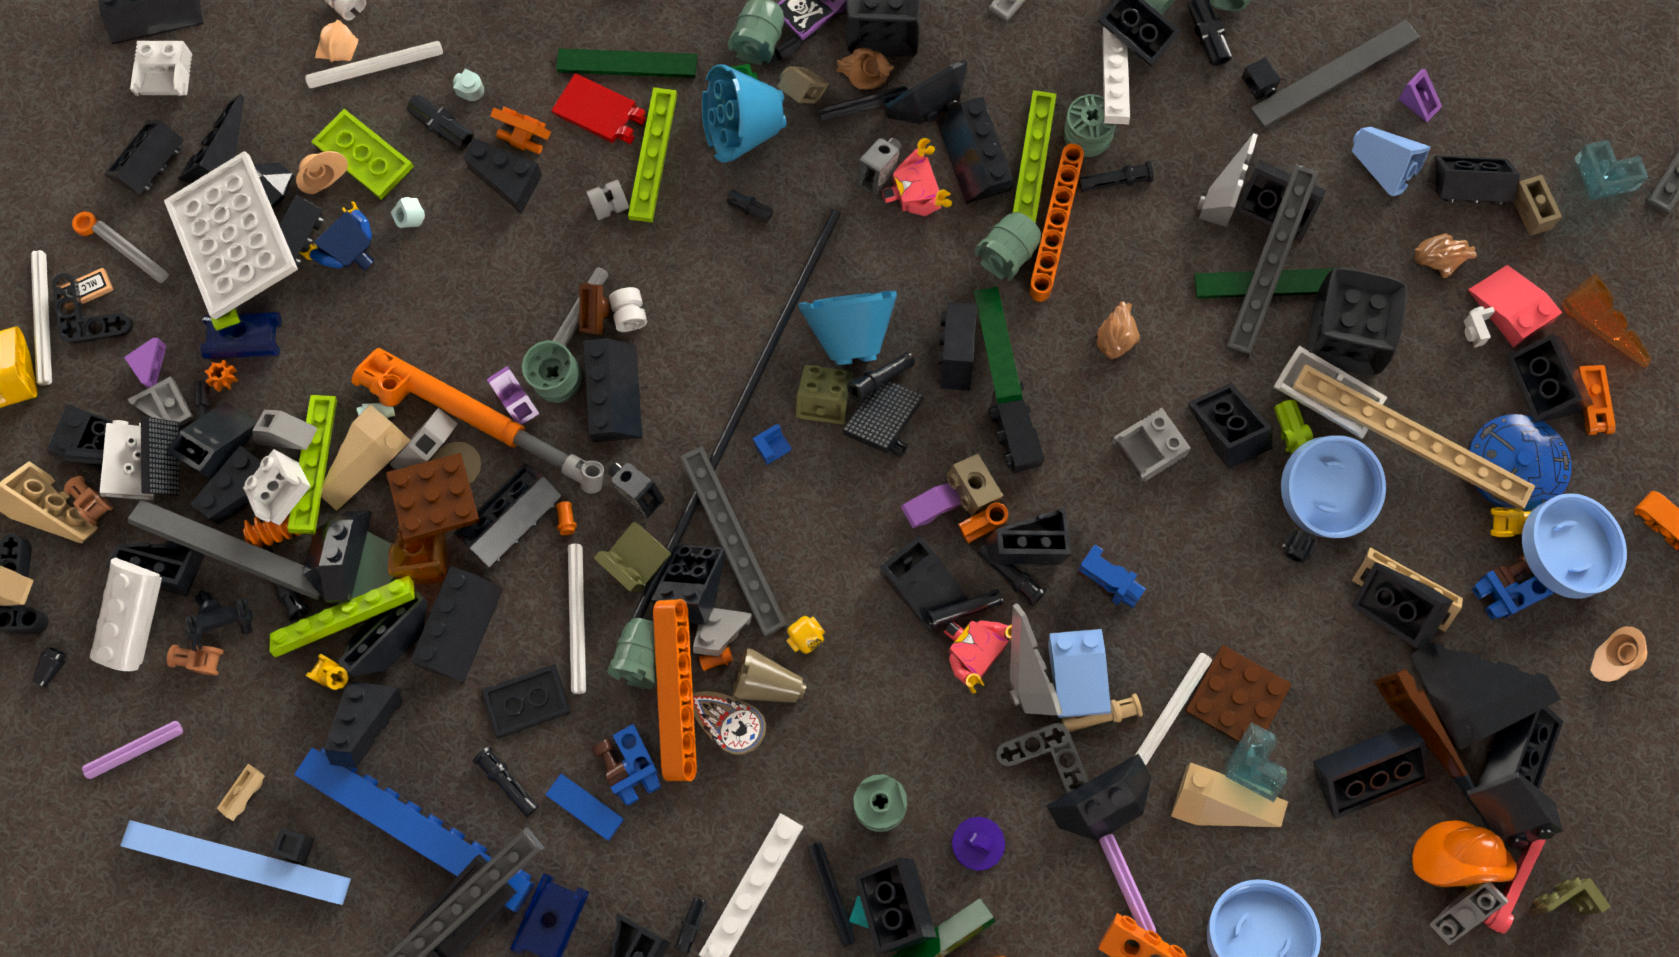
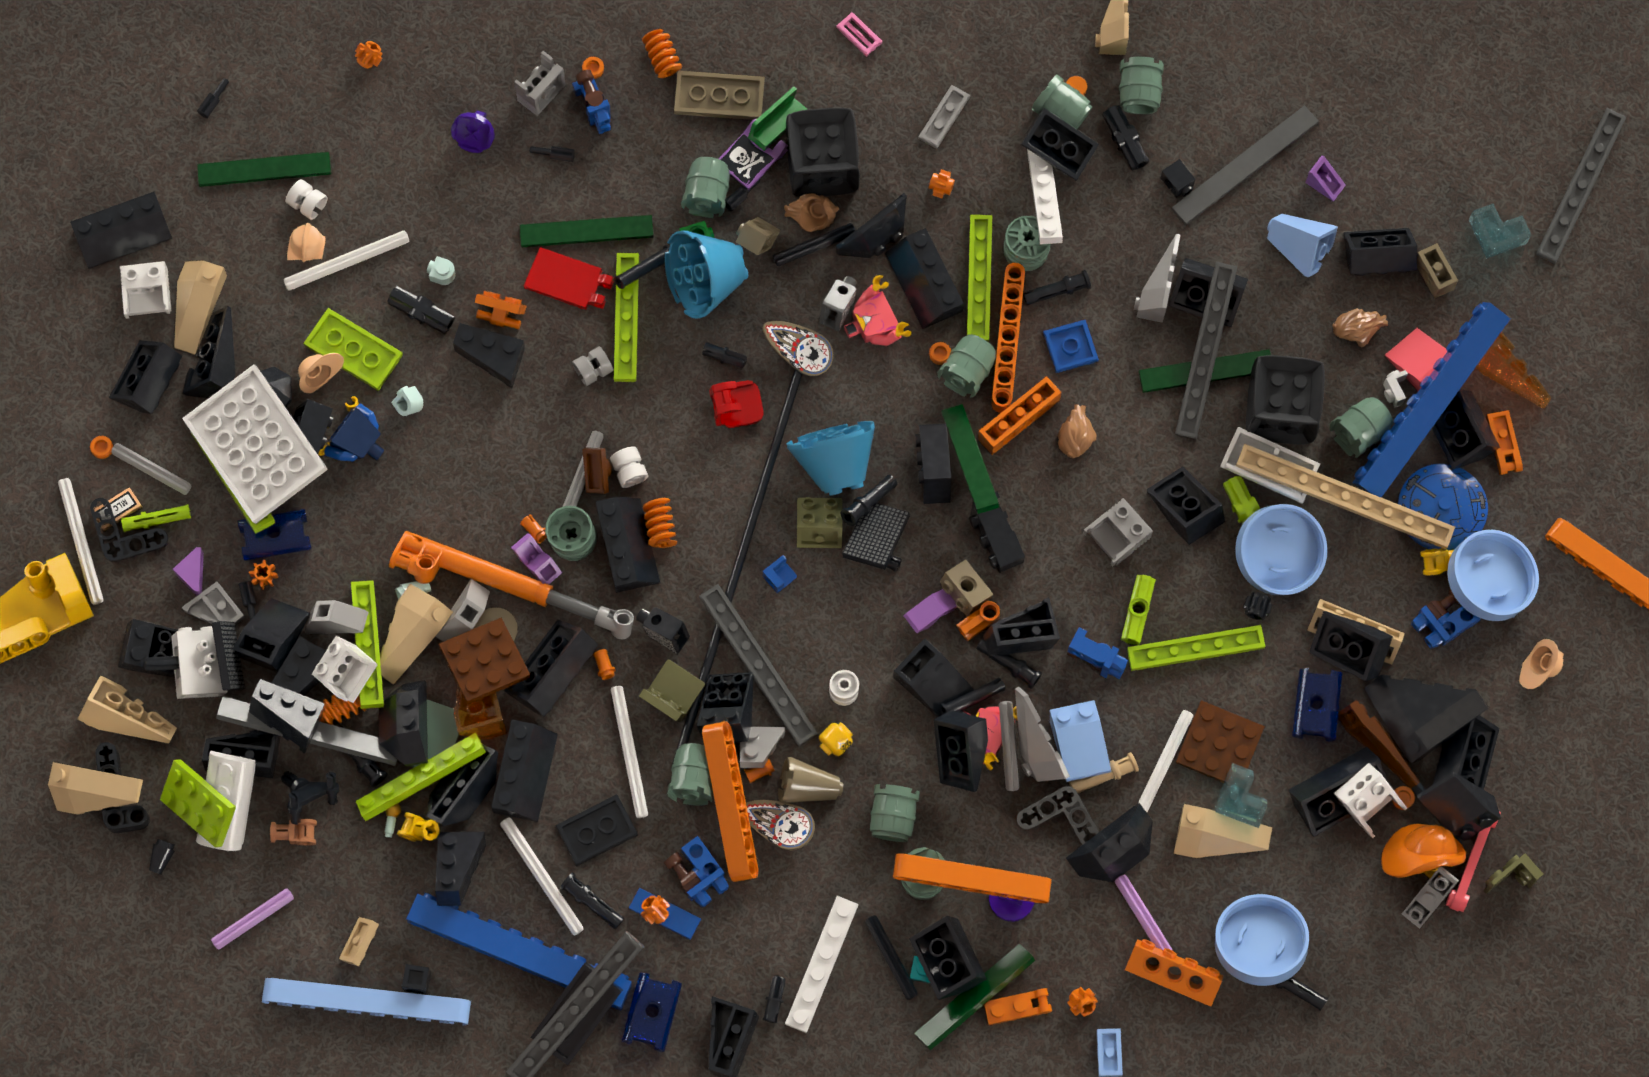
camera: 15 degrees left, 0 degrees up
(88, 501) = (167, 705): nougat connector -> none
(91, 614) = (197, 803): none -> lime plate
(118, 303) = (155, 518): none -> lime pin
(205, 527) = (287, 712): none -> wedge
(213, 87) = (196, 298): none -> tan wedge
(306, 653) = (391, 813): none -> piece
(456, 745) = (541, 876): none -> white axle
(515, 361) = (534, 529): none -> orange pin
(571, 802) = (655, 909): none -> orange gear
(648, 373) = (657, 523): none -> orange piece
(674, 106) = (641, 268): none -> black pin
(753, 256) = (736, 403): none -> red piece
(822, 578) = (844, 687): none -> white wheel
(830, 205) = (799, 347): none -> shield
(857, 727) = (893, 813): none -> sand green piece
(933, 819) = (972, 878): none -> orange beam
(943, 664) = (960, 749): none -> black slope
(980, 229) = (939, 353): none -> orange tile
(998, 668) = (1009, 745): none -> light grey axle
(1006, 55) = (941, 183): none -> orange gear
(1058, 305) = (1019, 415): none -> orange brick
(1123, 240) = (1070, 346): none -> blue tile
(1168, 519) = (1141, 597): none -> lime piece
(1223, 584) = (1196, 647): none -> lime plate
(1355, 686) = (1314, 688): none -> clear blue piece
(1404, 780) = (1366, 795): none -> white piece
(1437, 362) = (1361, 426): none -> sand green piece
(1444, 787) = (1406, 795): none -> orange tile
(1522, 340) = (1431, 399): none -> blue brick

